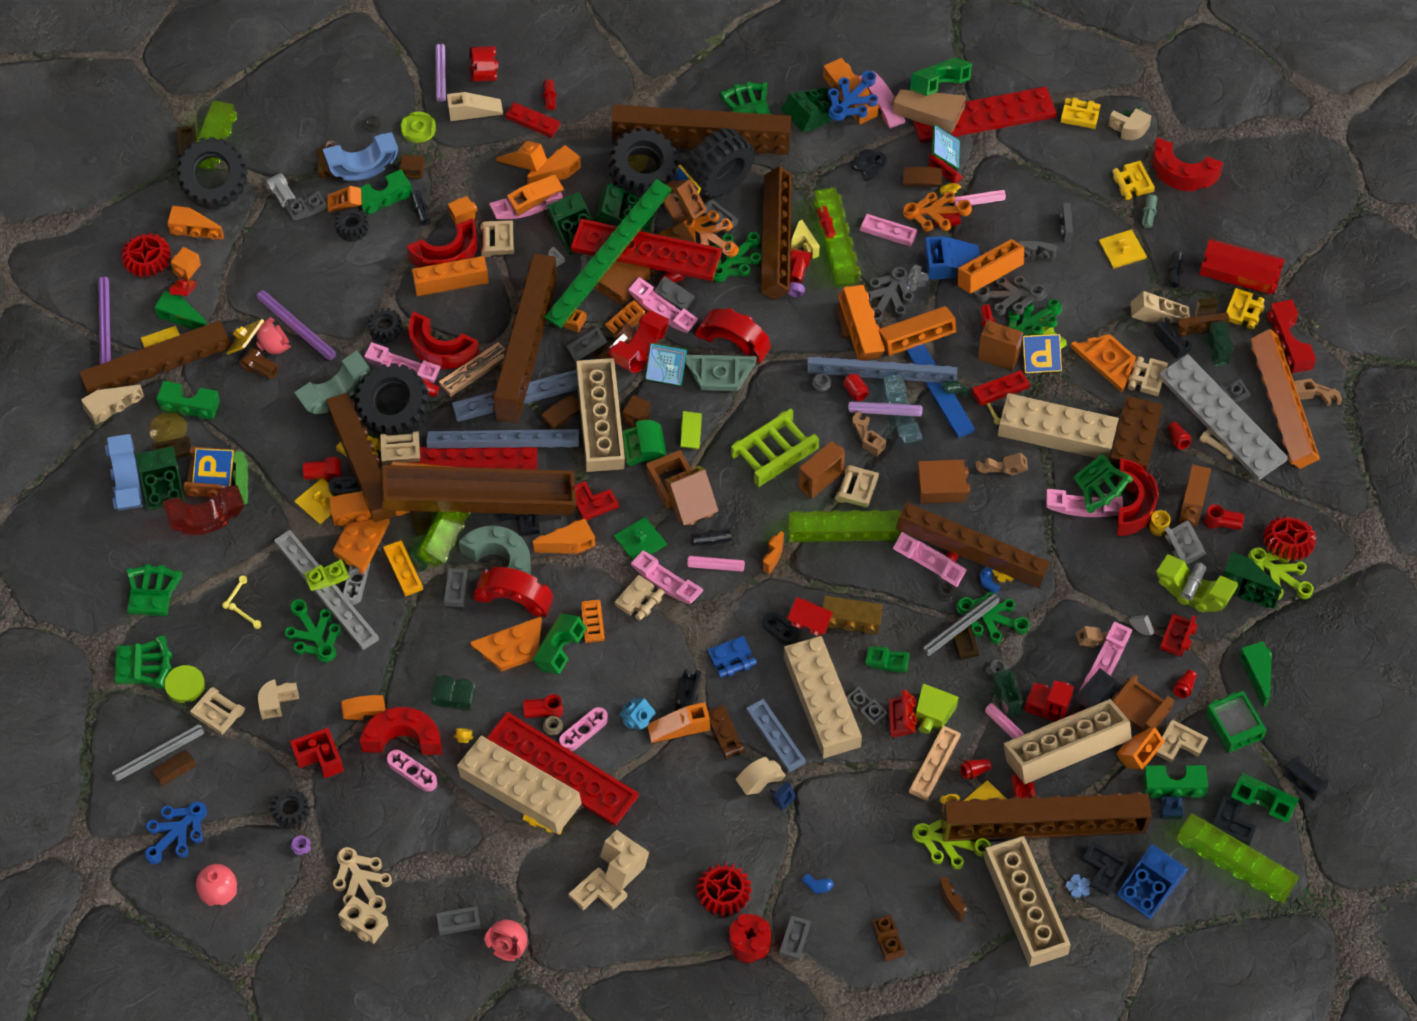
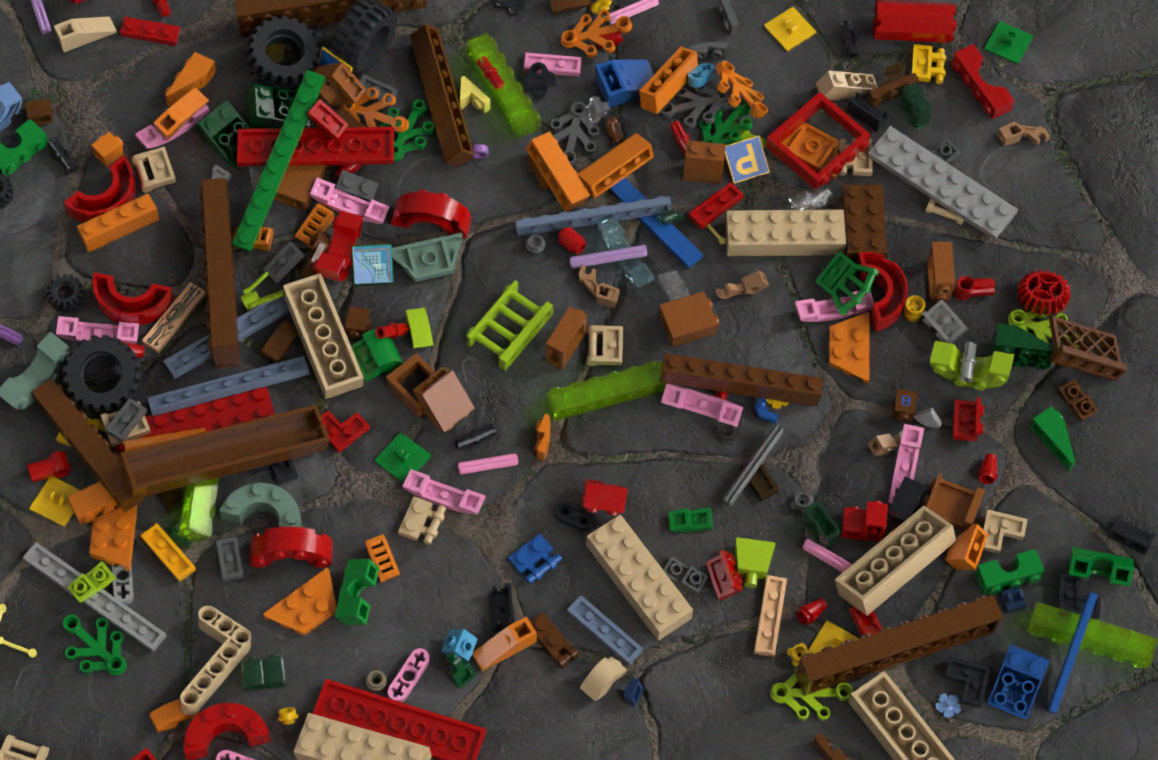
camera: 20 degrees left, 5 degrees up
(271, 696) = (73, 728): tan brick -> none
(346, 484) = (80, 477): black plate -> none
(400, 443) = (126, 420): none -> dark grey plate
(418, 127) = (31, 67): lime tile -> none
(432, 660) = (218, 661): none -> tan beam
(524, 155) = (154, 73): orange slope -> none
(541, 707) = (357, 664): red piece -> none
(548, 369) = (252, 299): none -> lime plant
(569, 539) = (331, 477): orange slope -> none
(632, 737) = (461, 672): none -> dark green plate
(662, 227) = (327, 119): none -> red plate
(664, 425) = (391, 330): none -> red axle
(798, 263) = (474, 121): red piece -> none
(854, 614) = (645, 481): pearl gold brick -> none
(868, 242) = (538, 83): none -> black plate
(924, 300) = (611, 130): none -> reddish brown arm
(937, 448) = (673, 285): none -> clear slope
(991, 616) = (780, 448): green plant -> none
(1023, 269) = (701, 75): none -> dark azure beam
(1047, 271) = (726, 71): none -> orange plant
(1083, 402) = (808, 201): none -> clear bracket
(1088, 543) = (851, 346): none -> orange wing
(1099, 329) = (818, 102): none -> red window
(1122, 607) = (904, 405): none -> reddish brown brick
(1179, 436) = (905, 212): red cone -> none
(1210, 867) = (1072, 653): none -> blue tile
(1235, 721) = (1048, 495): window -> none
(1285, 399) = (996, 149): orange brick -> none
(1292, 644) = (1076, 400): none -> reddish brown slope
(1308, 606) = (1084, 358): none -> reddish brown fence
(1330, 308) = (1008, 42): none -> green piece

